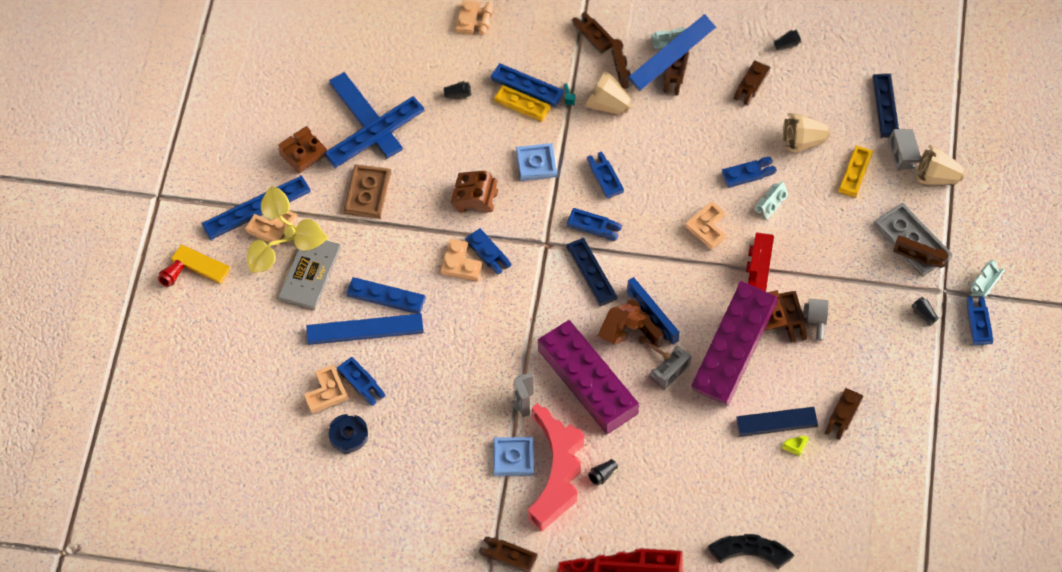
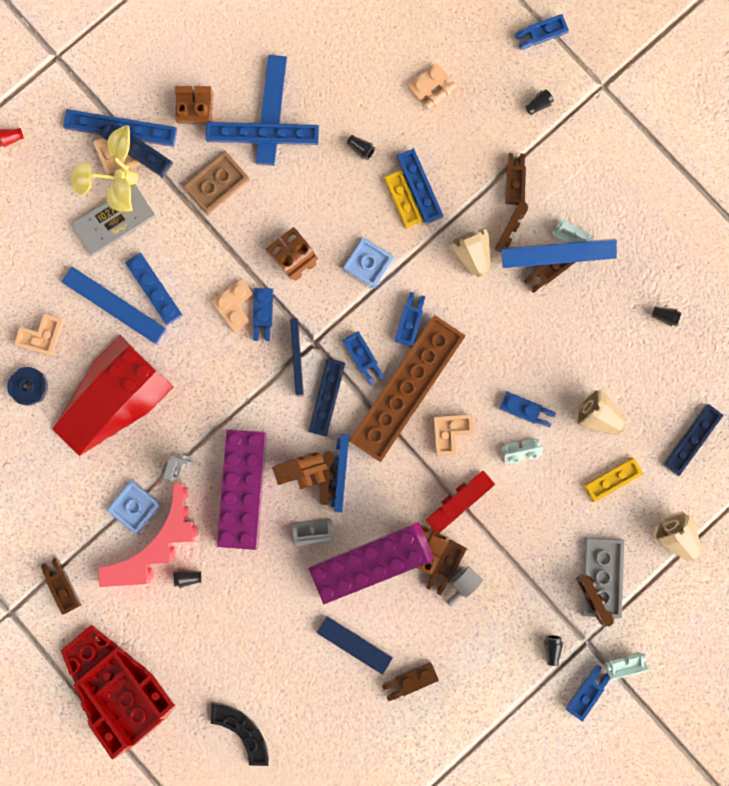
camera: 35 degrees right, 25 degrees up
(201, 264) = (38, 145): yellow tile -> none
(298, 207) = (141, 152): none -> dark blue tile
(360, 380) = (73, 348): blue hinge -> none
(422, 390) = (110, 397): none -> red wedge
(544, 259) = (297, 361): none -> dark blue tile
(569, 98) = (443, 225): teal hand -> none
(642, 339) = (315, 489): medium nougat hinge -> none
(647, 221) = (407, 388): none -> dark orange plate
(752, 81) = (604, 329): reddish brown hinge -> none
(795, 445) = (352, 675): neon yellow tile -> none
(904, 148) = (670, 494): light grey hinge -> none

